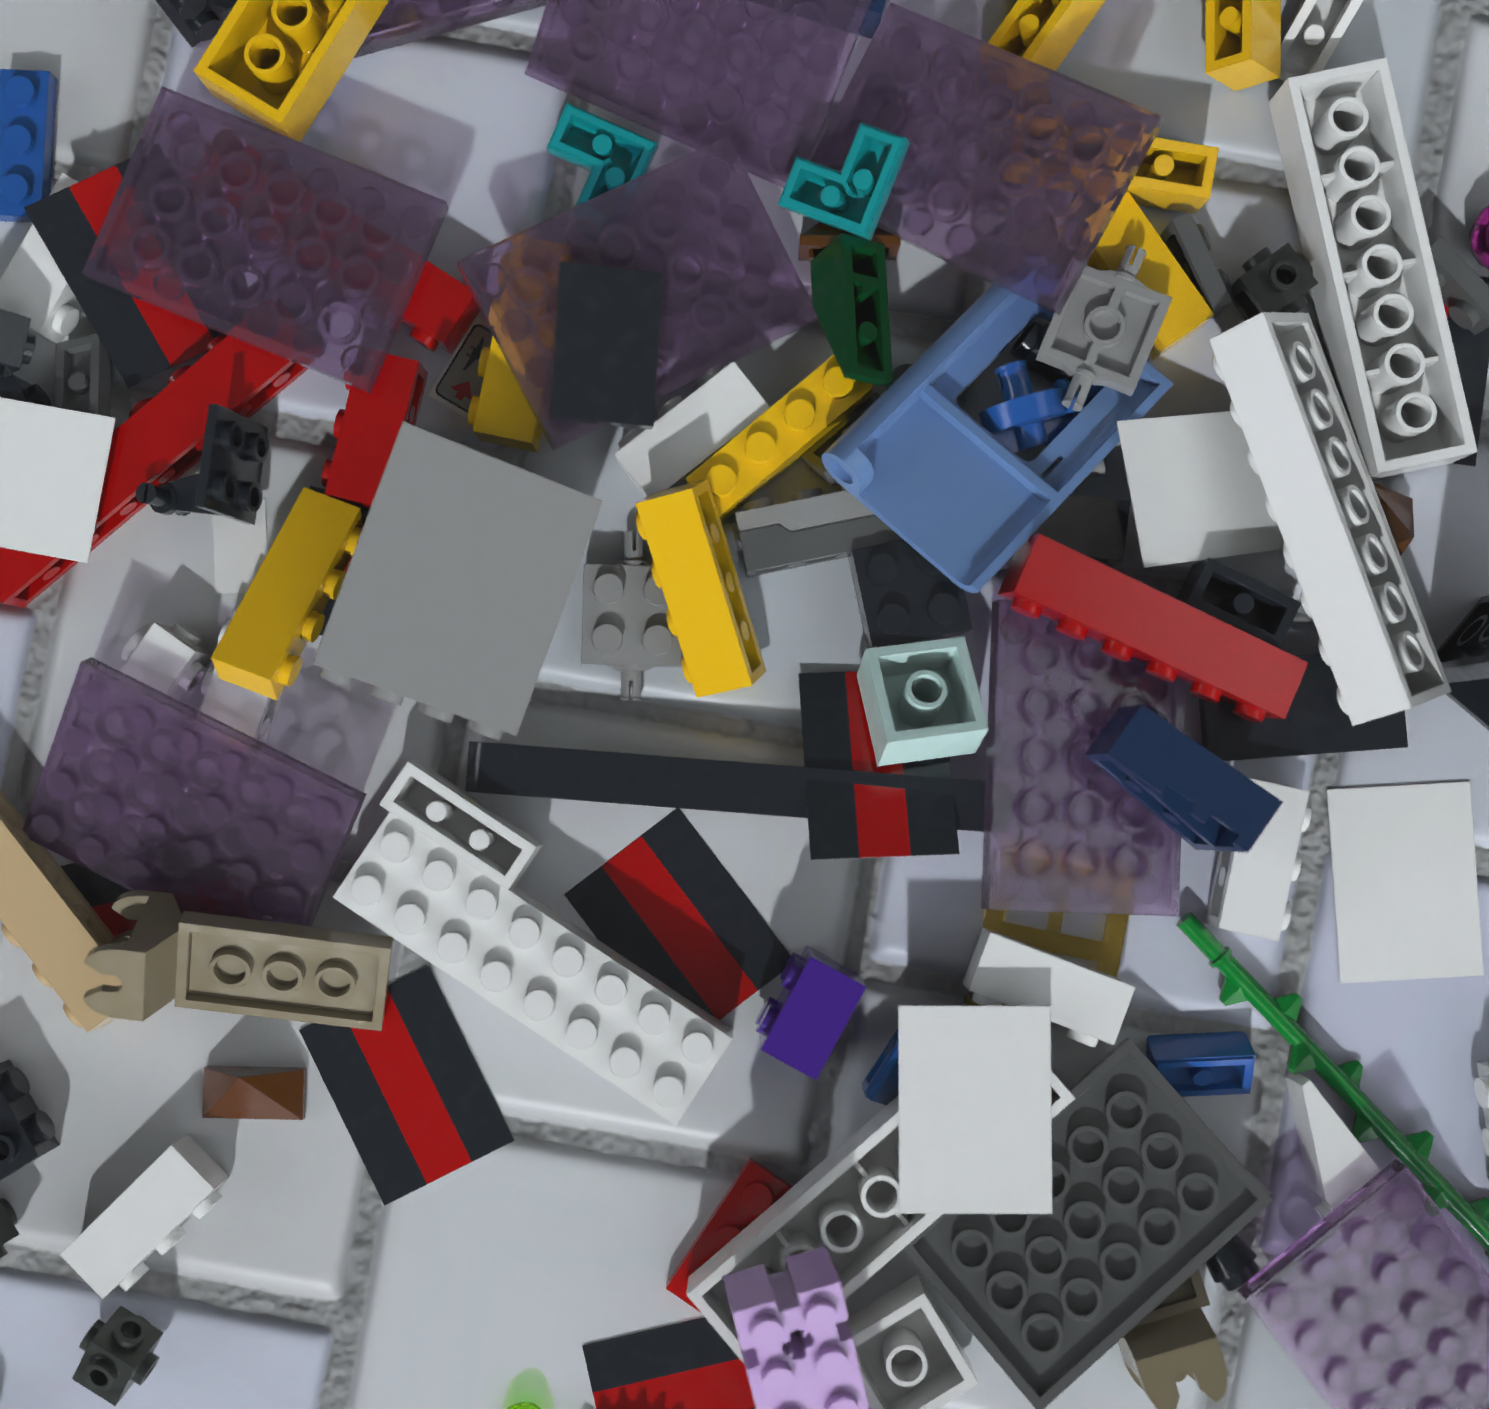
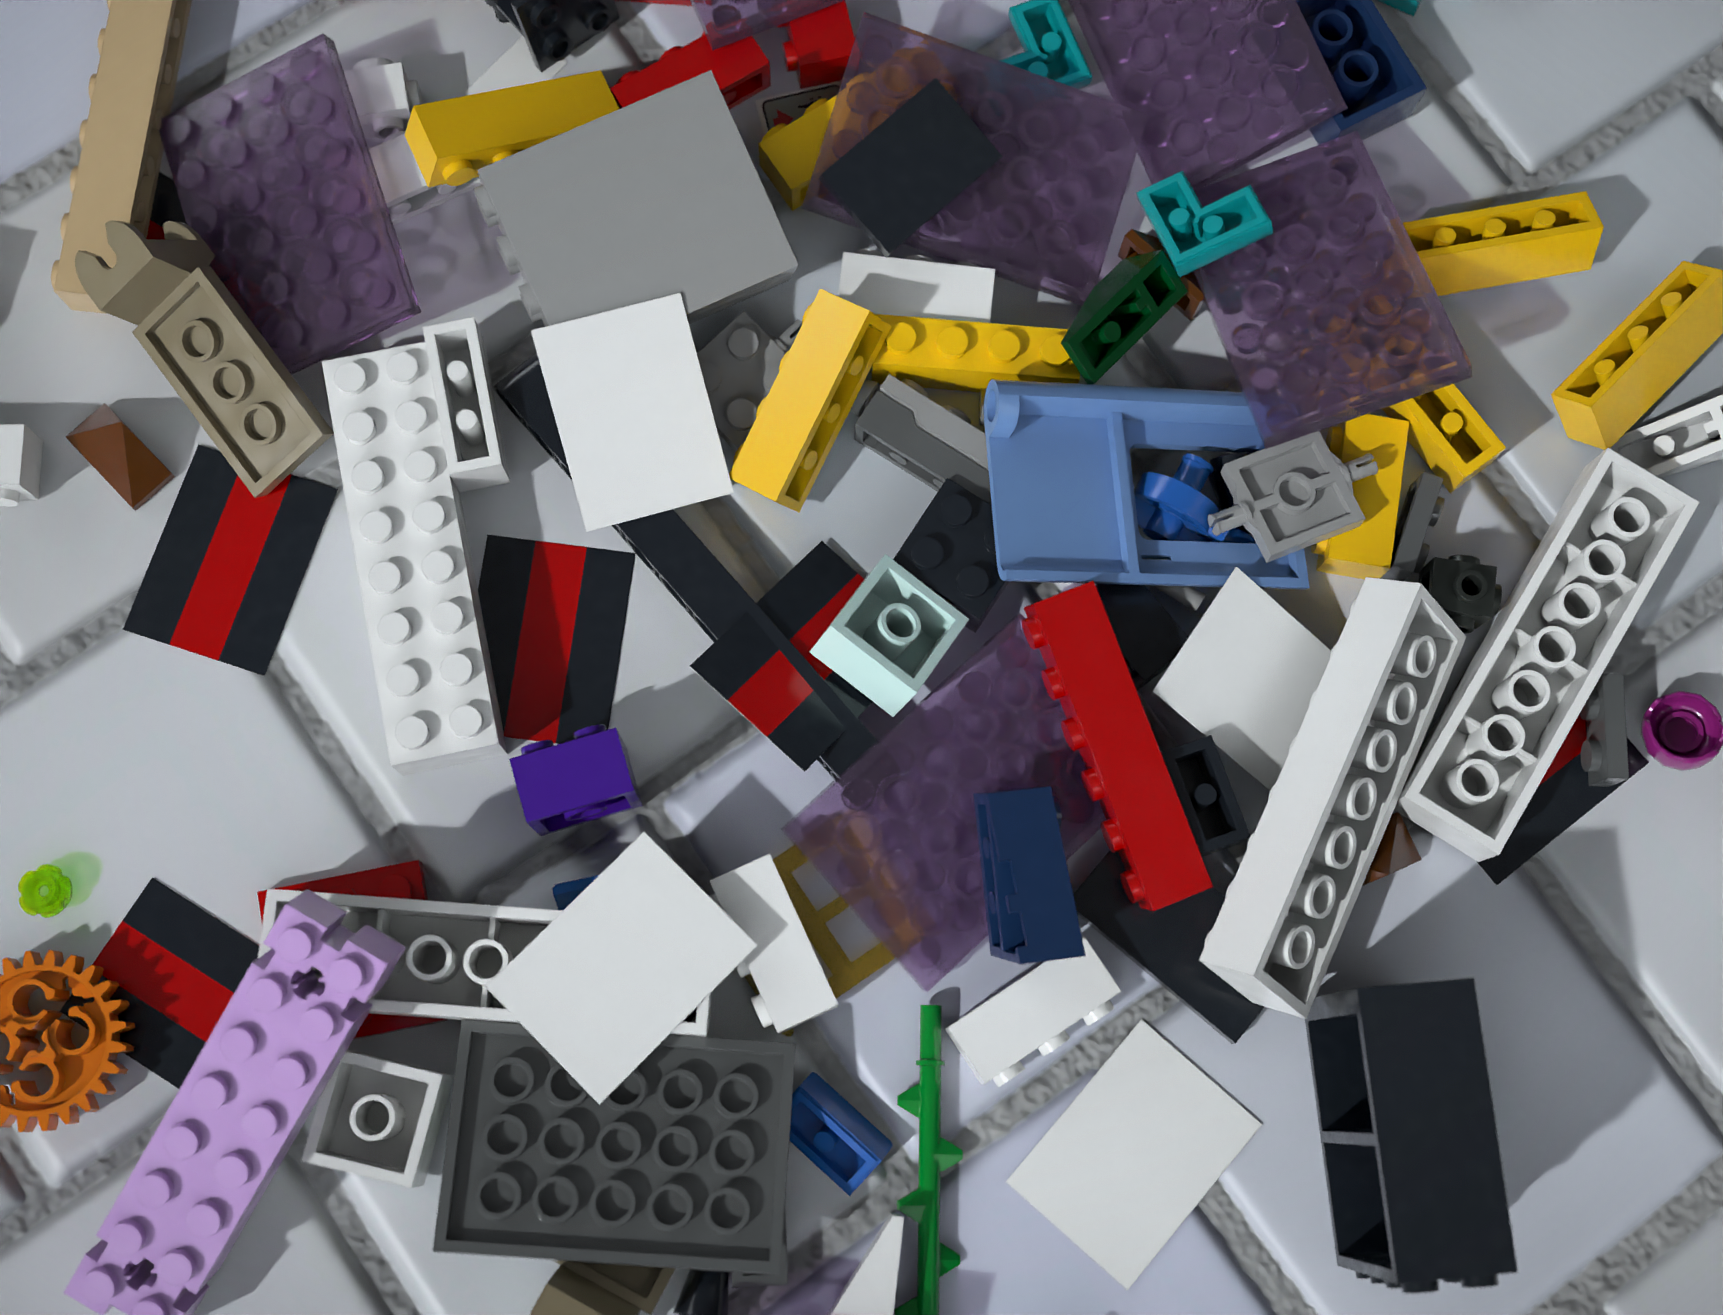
camera: 40 degrees right, 10 degrees down
(589, 720) = (632, 411): none -> white sticker

